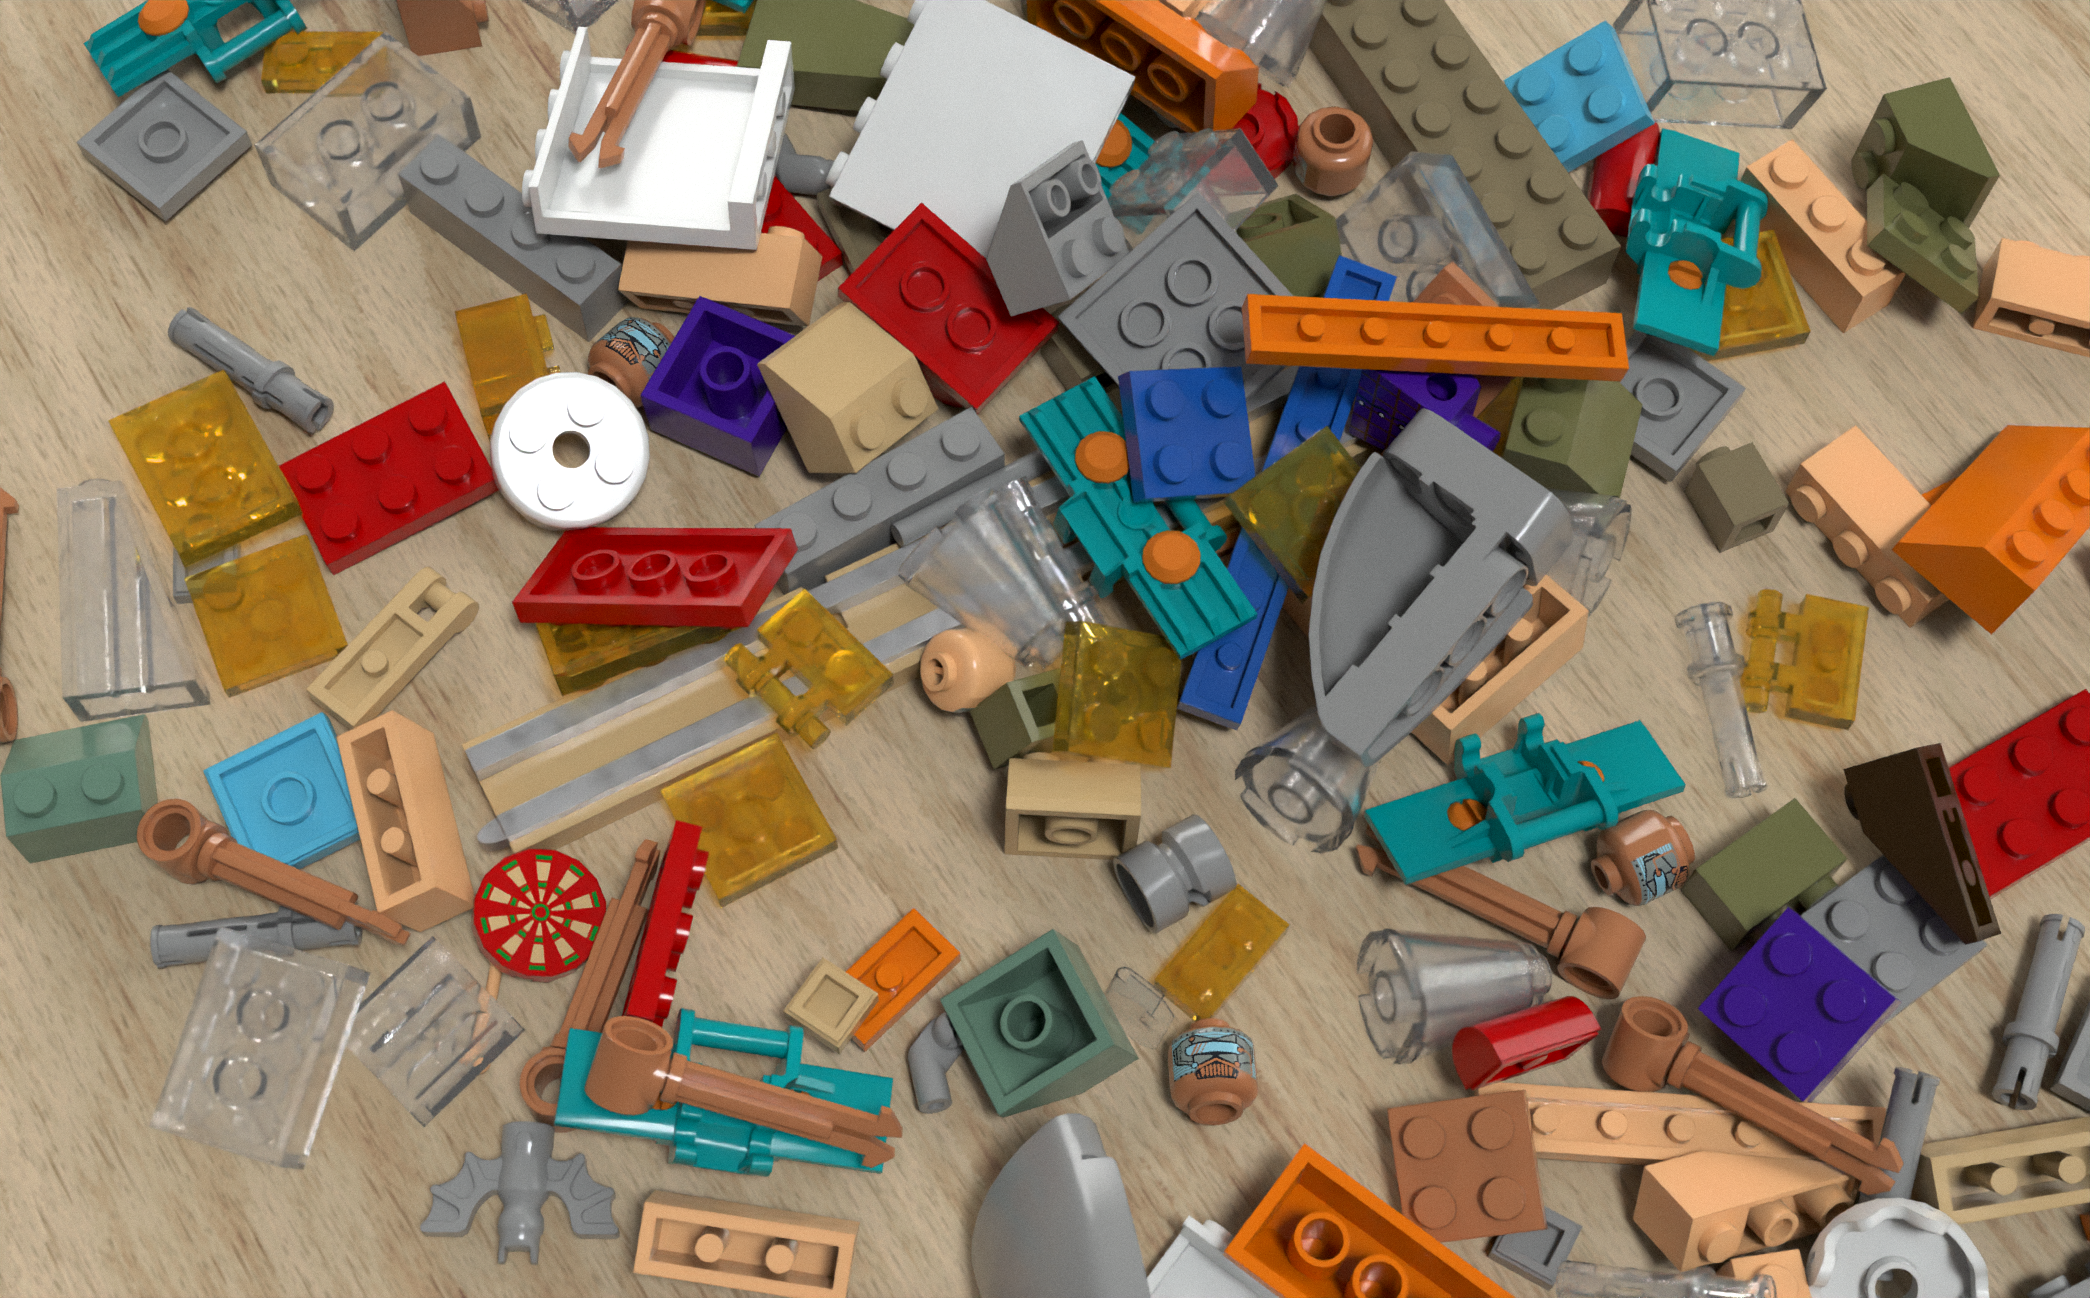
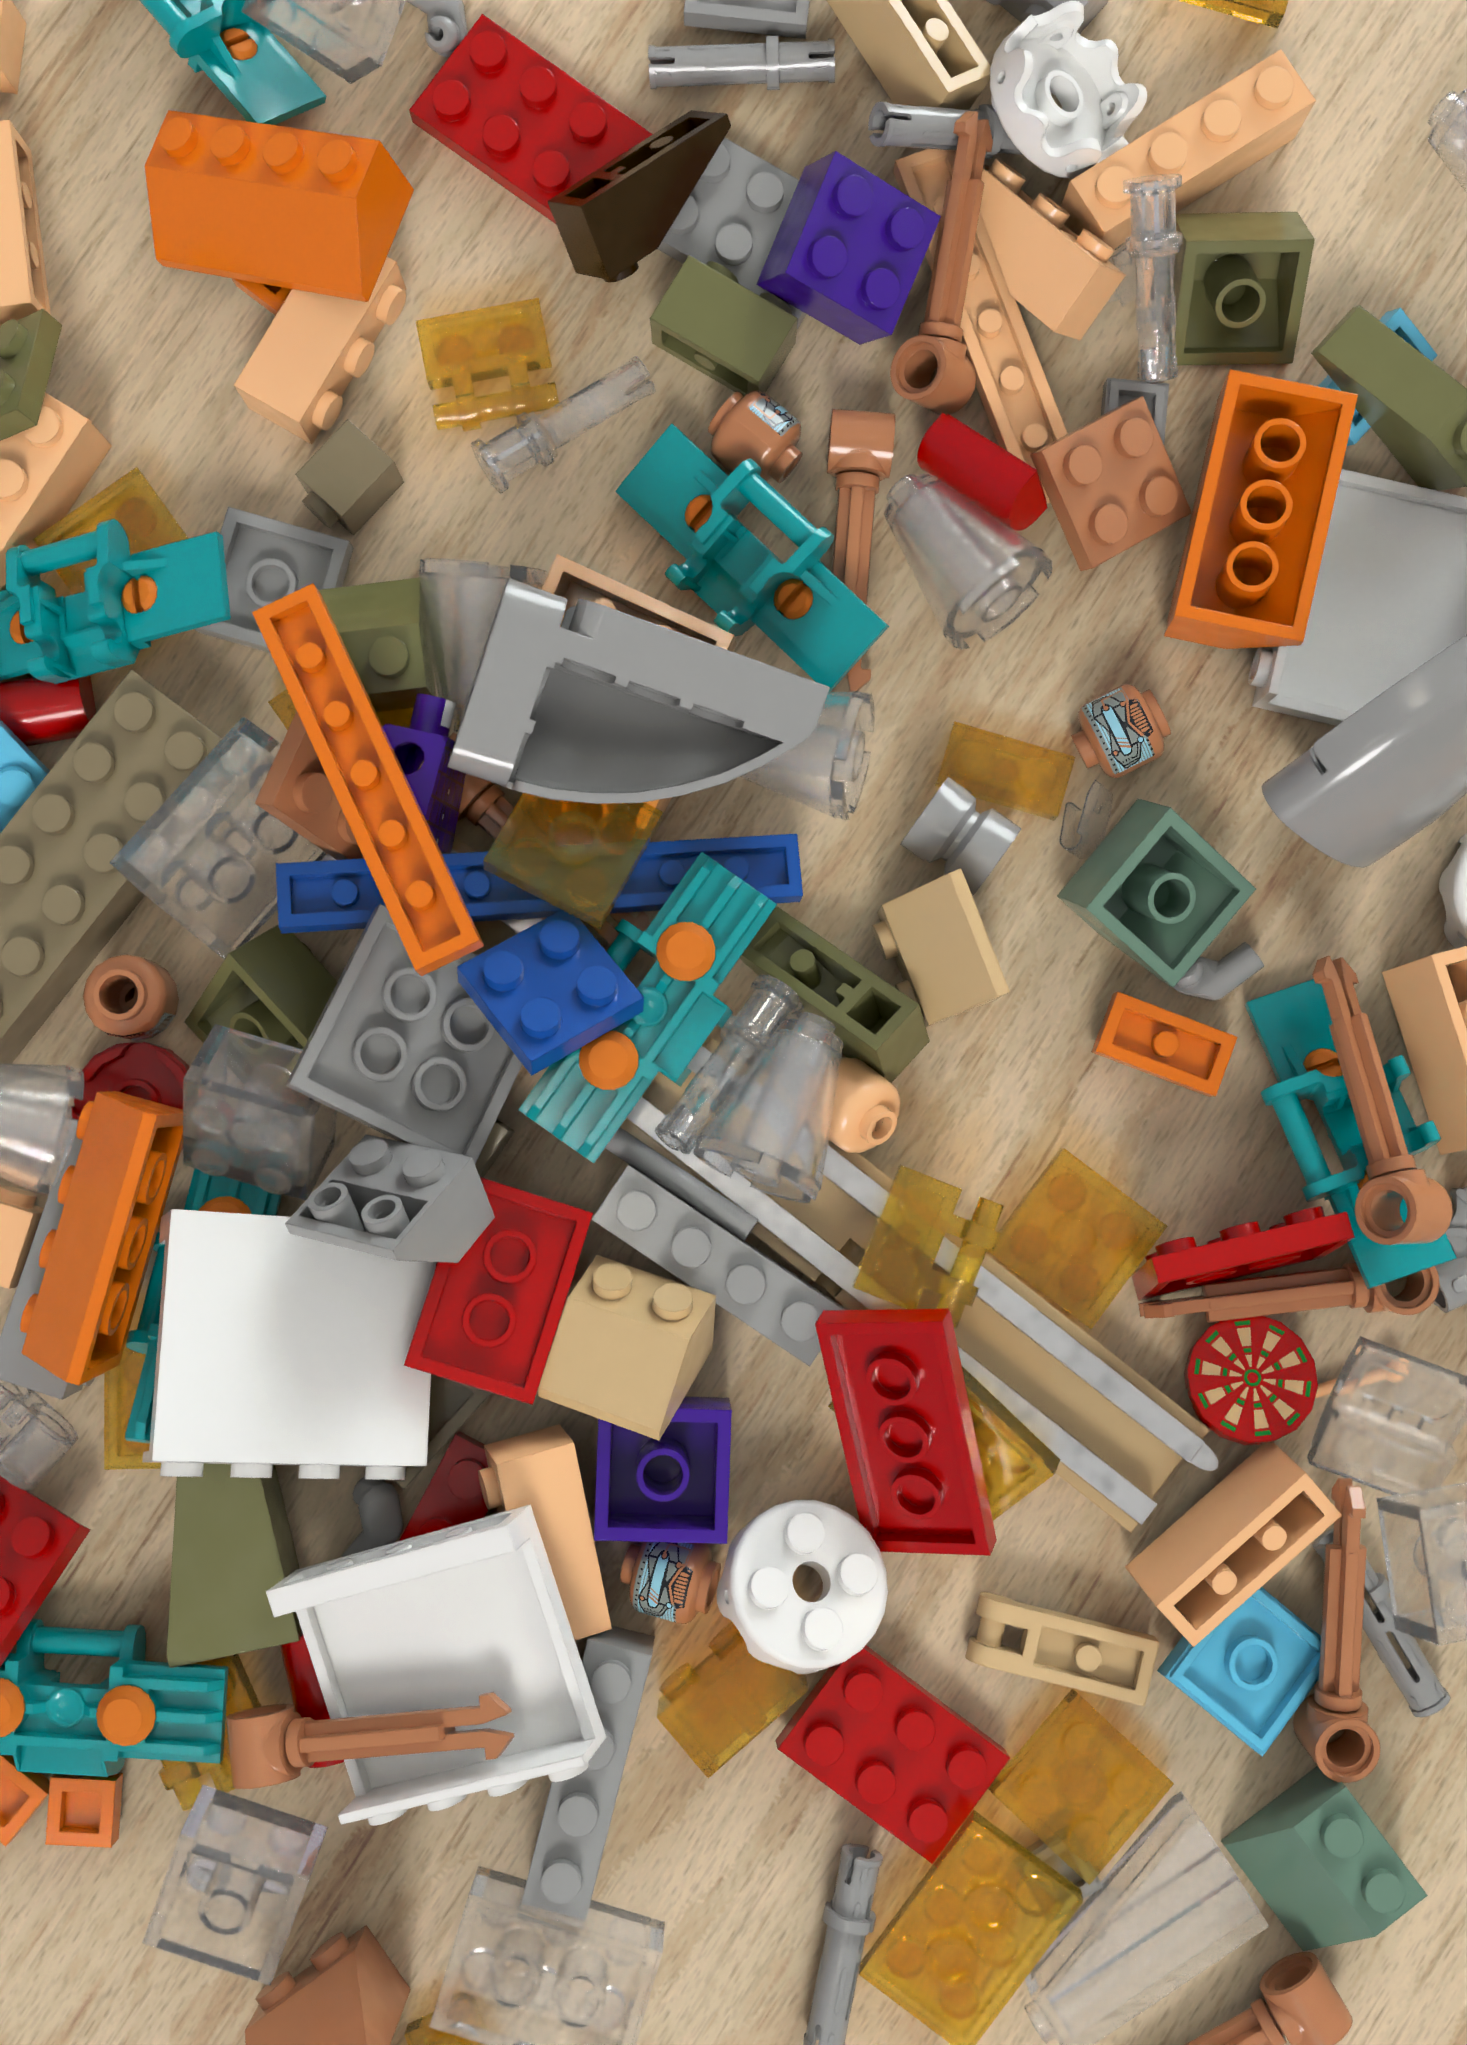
camera: 115 degrees left, 20 degrees up
(831, 1005) = (1222, 1078): tan tile -> none
(1116, 695) = (829, 954): clear yellow plate -> none

